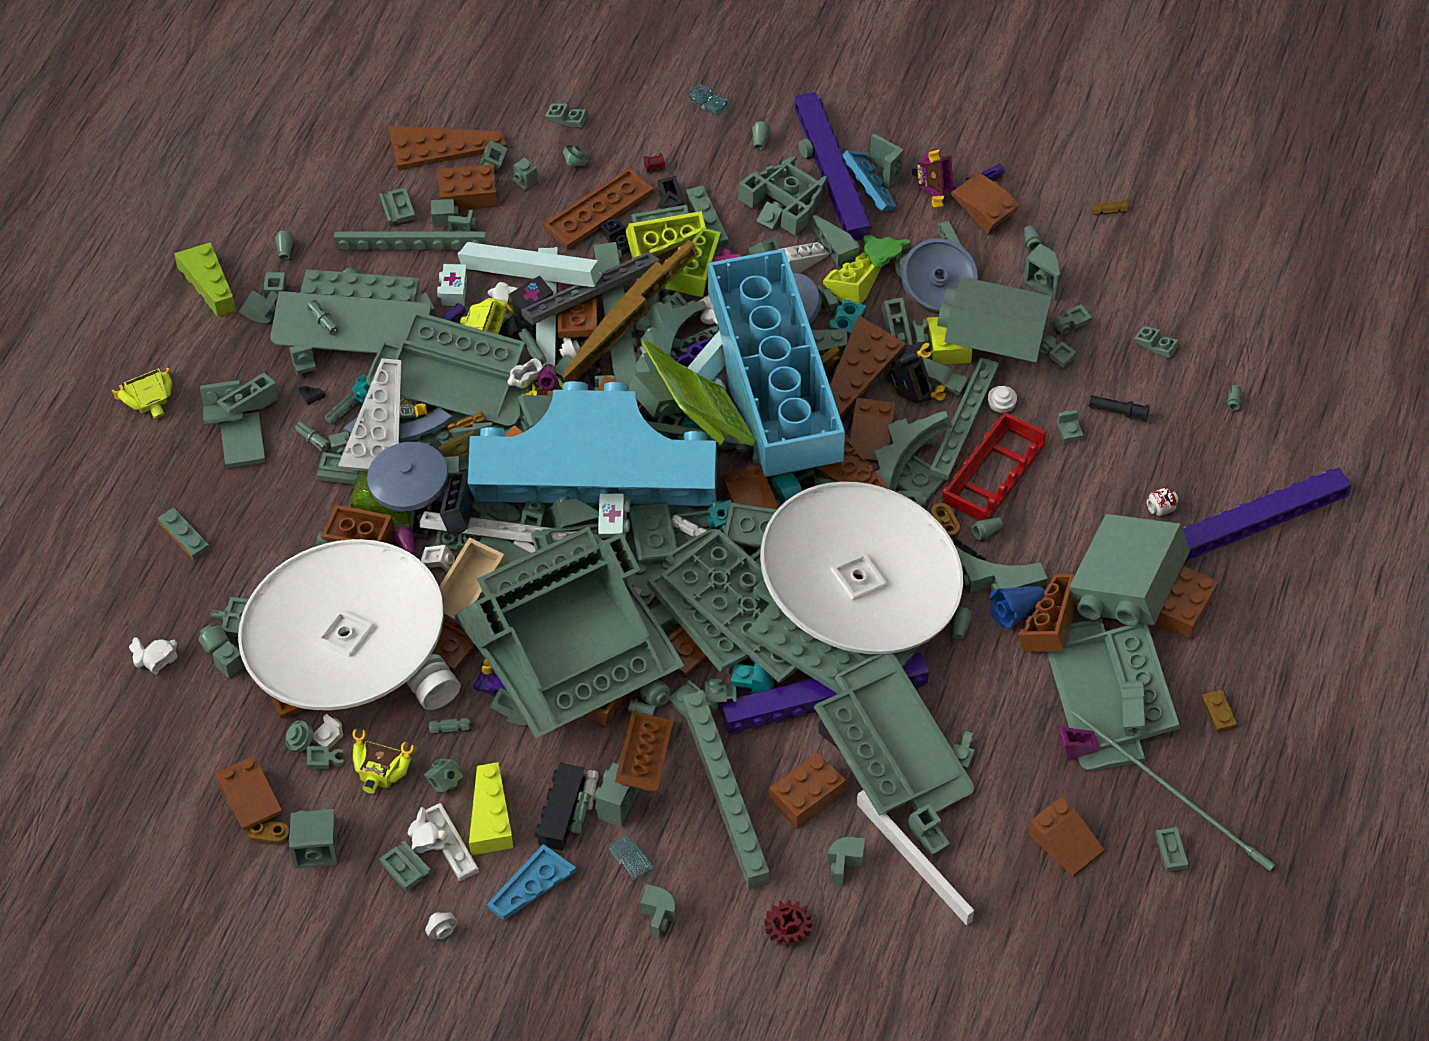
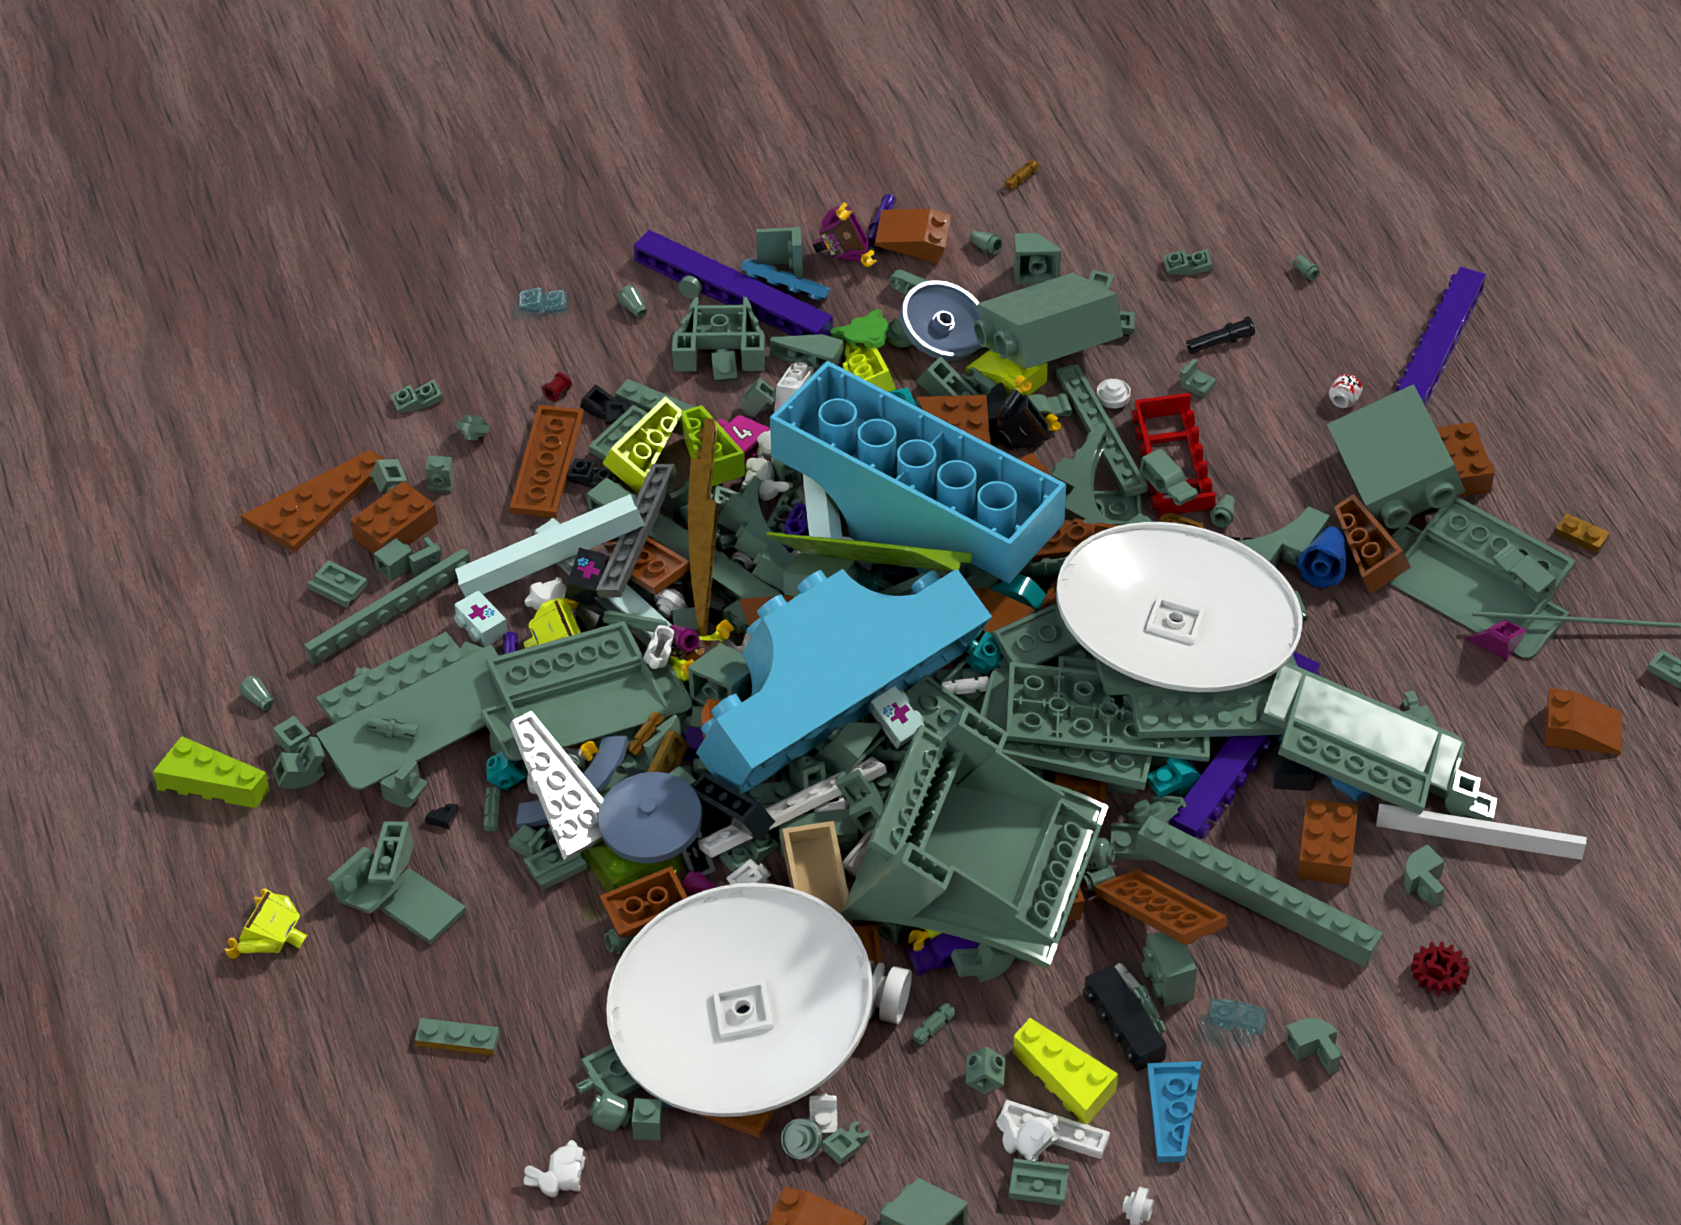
camera: 40 degrees left, 5 degrees down
(312, 436) = (492, 853): sand green axle -> none
(378, 763) = (910, 1106): torso -> none
(962, 478) = (1166, 477): none -> sand green piece

